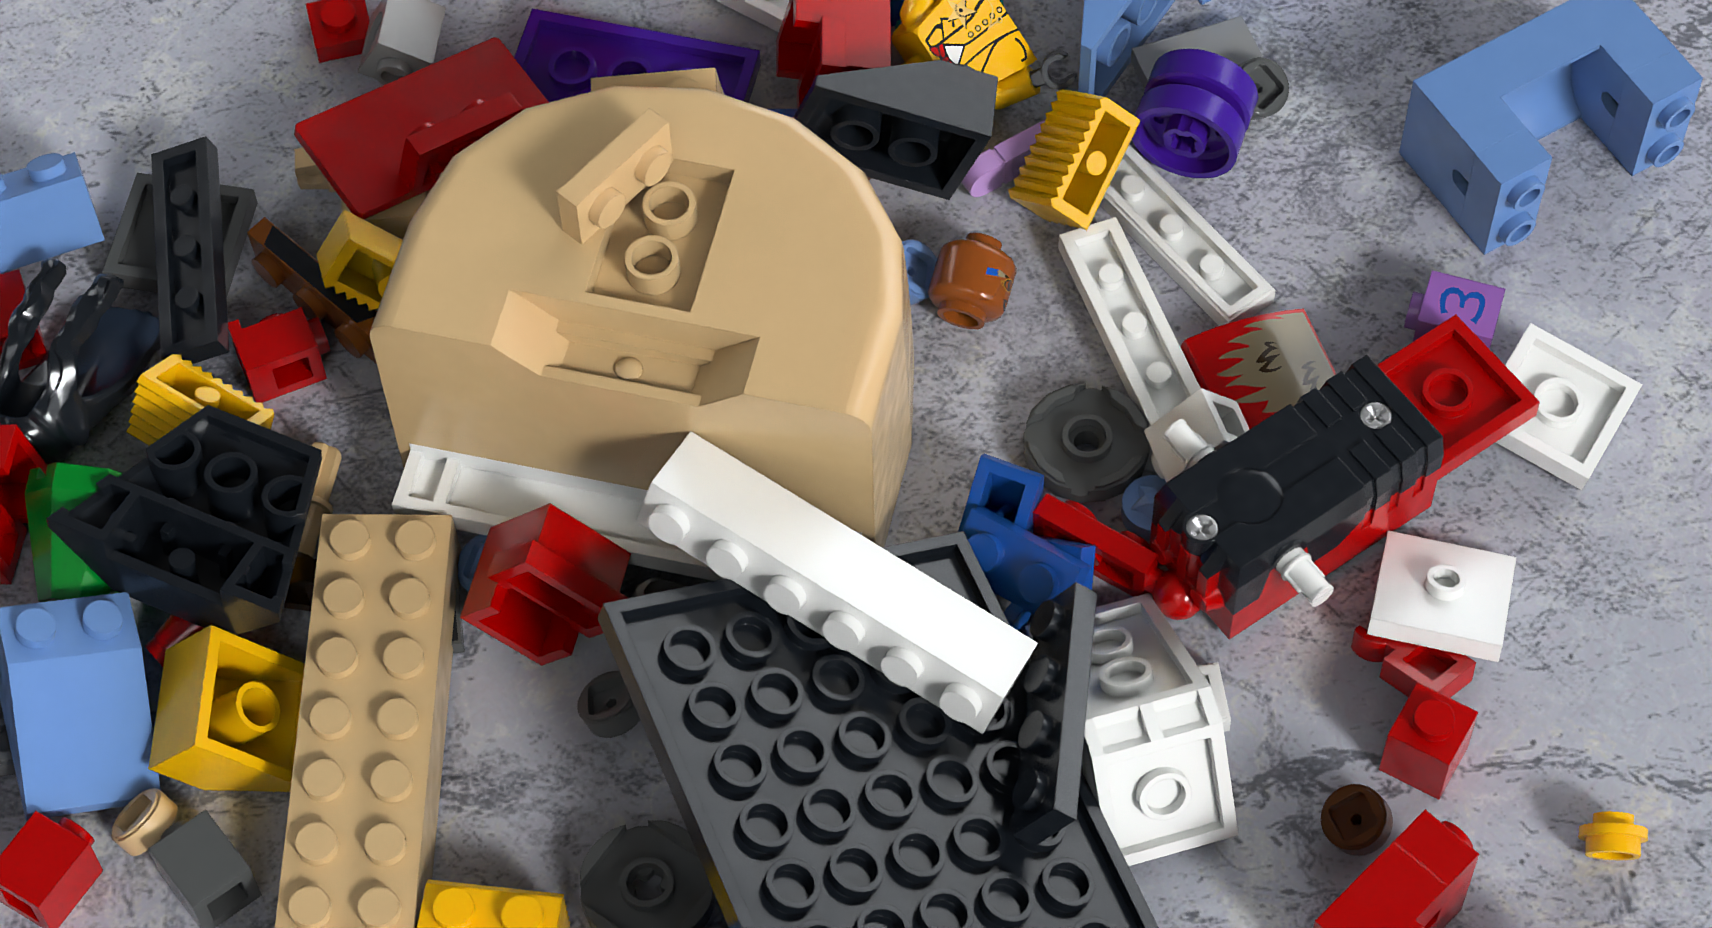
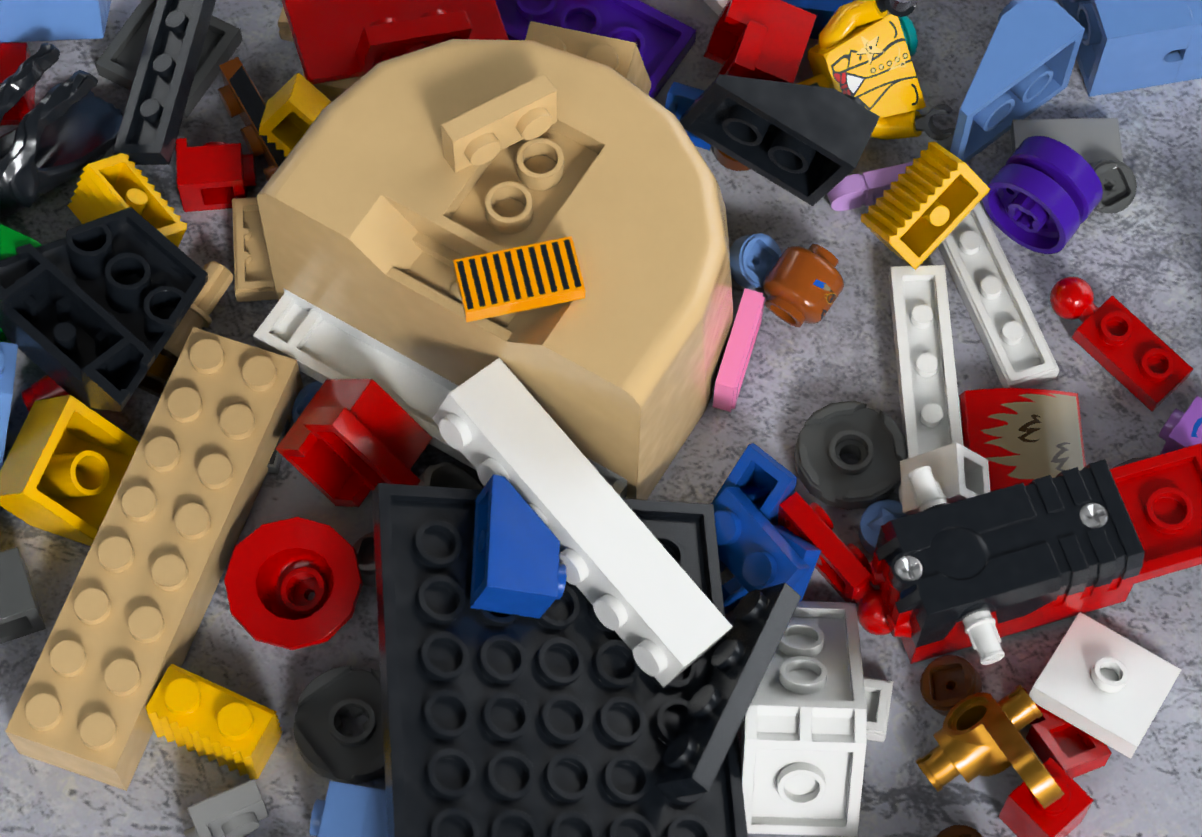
camera: 15 degrees right, 5 degrees up
(358, 414) = (251, 258): none -> tan plate
(513, 738) = (278, 570): none -> red hat
(694, 332) = (519, 279): none -> light orange tile
(777, 634) = (513, 555): none -> blue slope
(927, 369) = (738, 350): none -> bright pink tile
(1281, 647) = (948, 682): none -> reddish brown tile
(1328, 244) = (1120, 342): none -> red plate
(1343, 683) = (986, 740): none -> pearl gold piece

